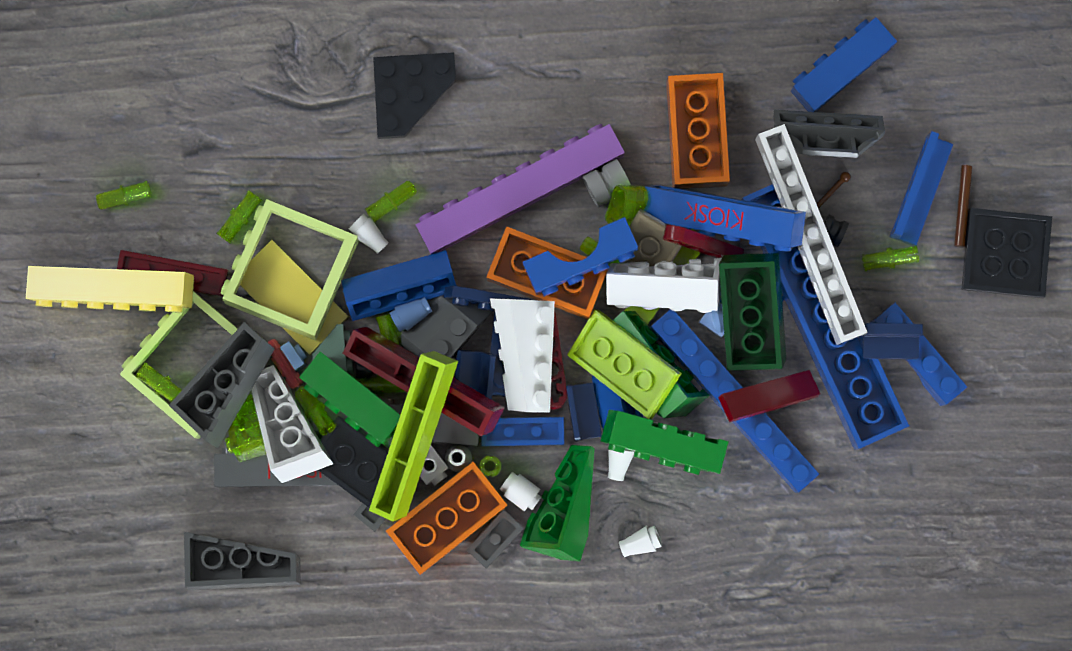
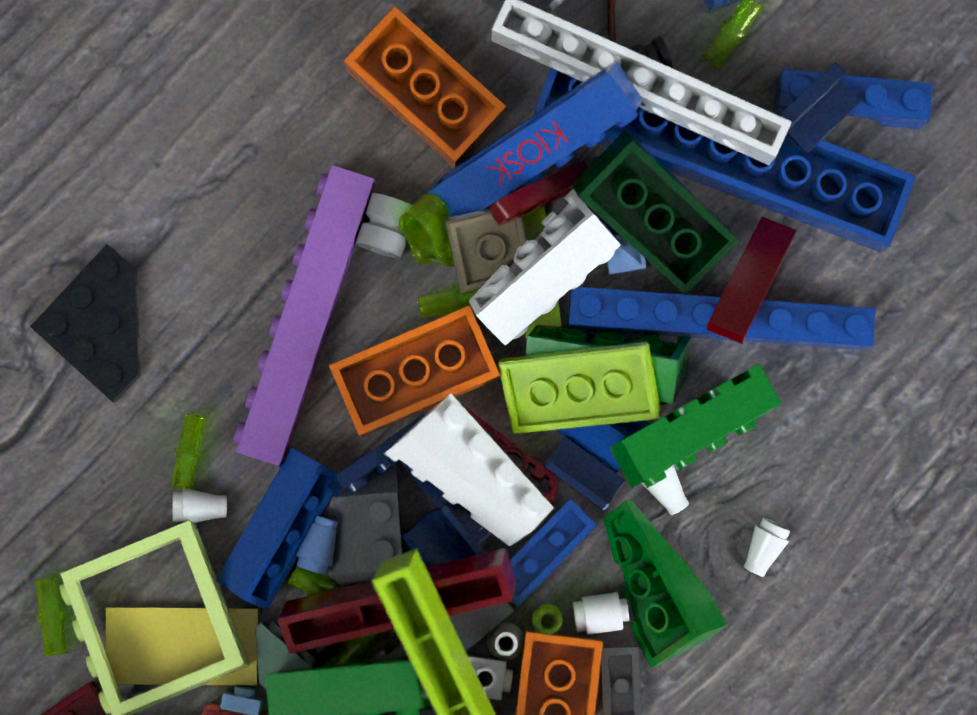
camera: 50 degrees left, 0 degrees up
(548, 272) = (416, 369): blue arch -> none

